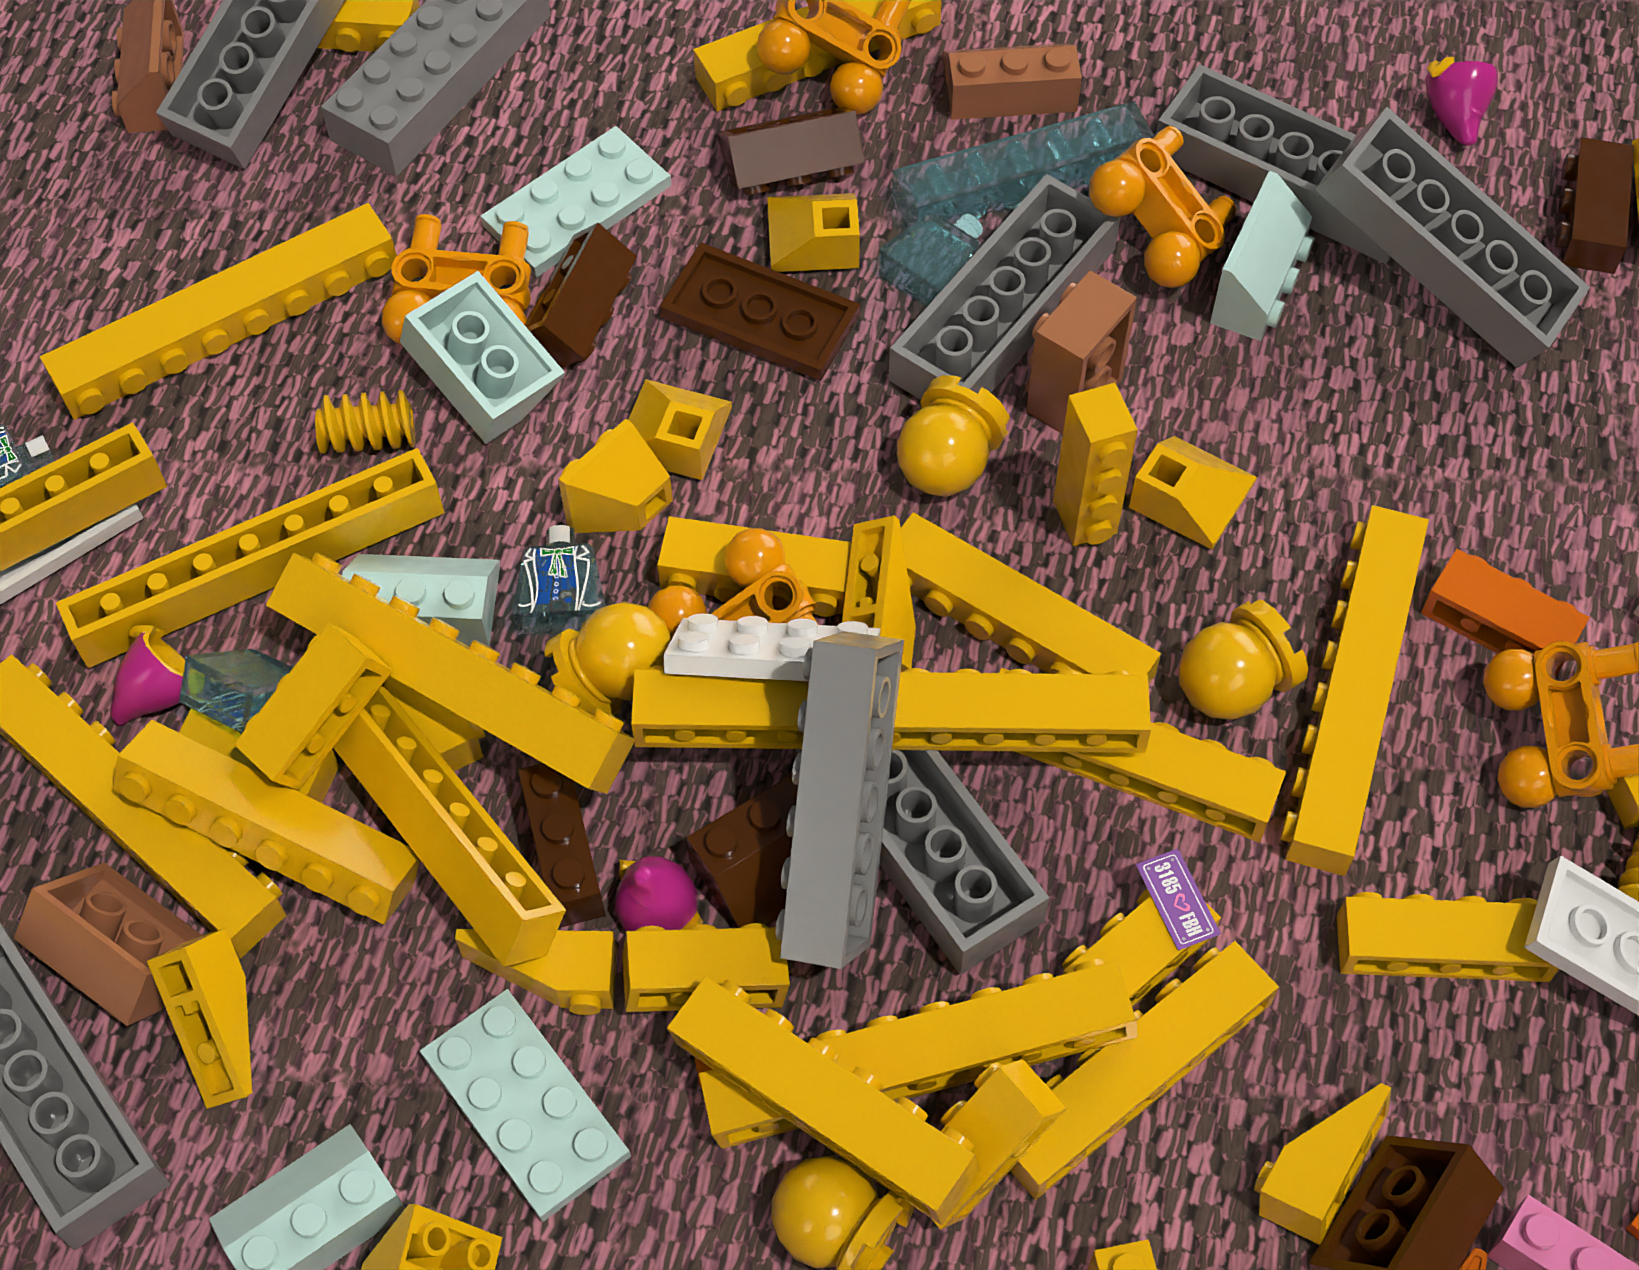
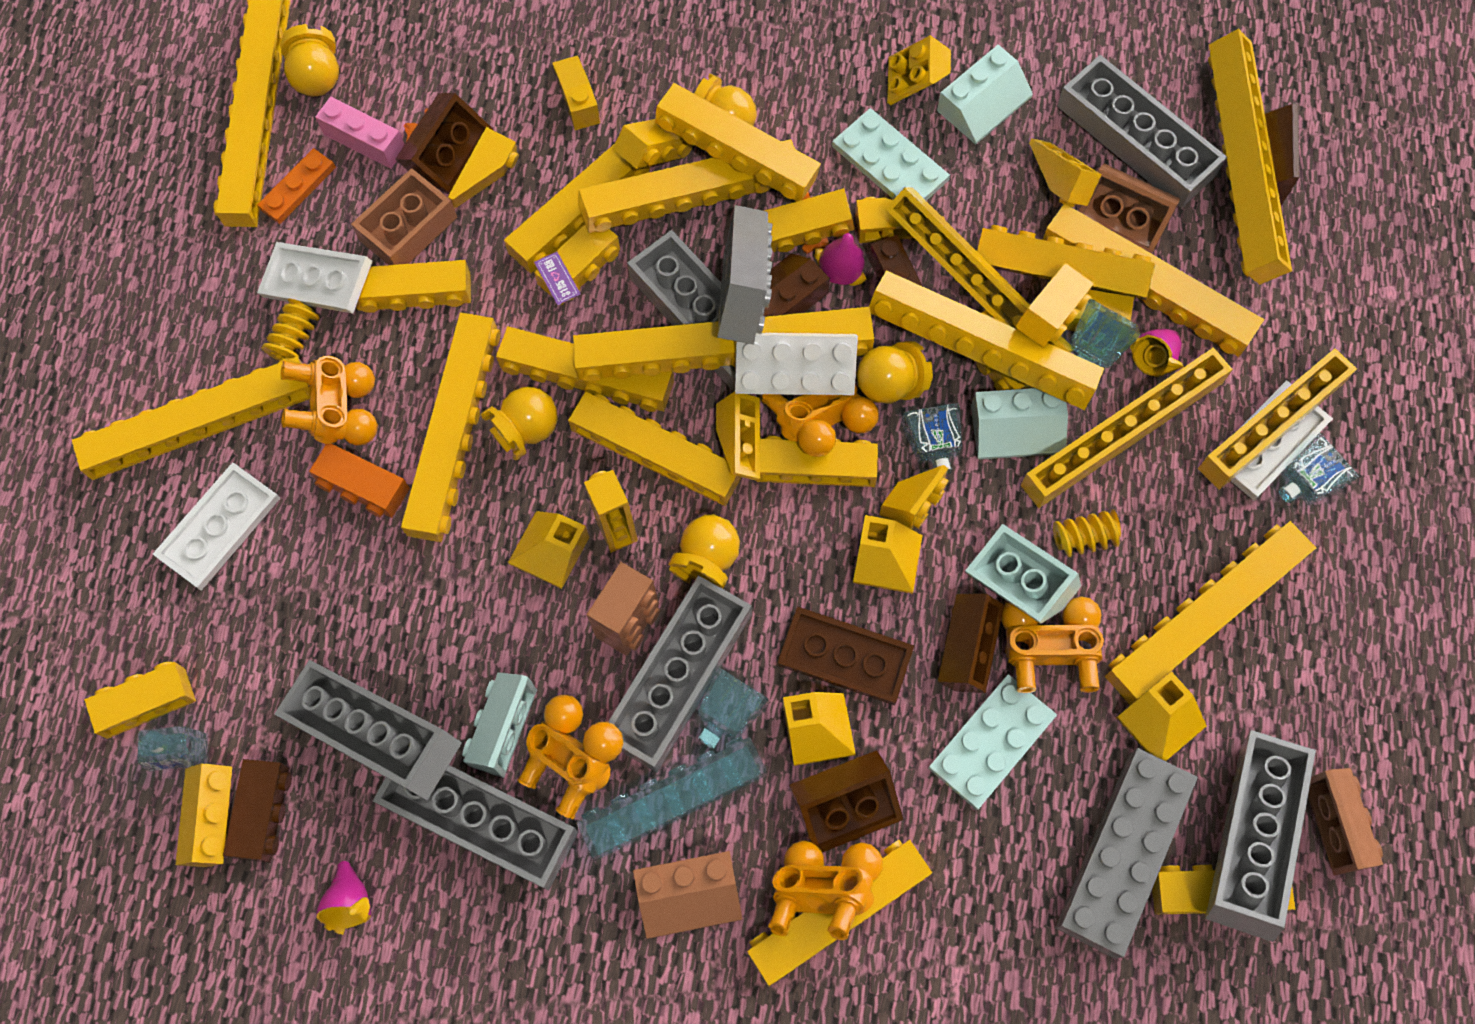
camera: 175 degrees right, 10 degrees up
(339, 189) = (1164, 718): none -> yellow slope
(1472, 1056) = (404, 219): none -> nougat brick

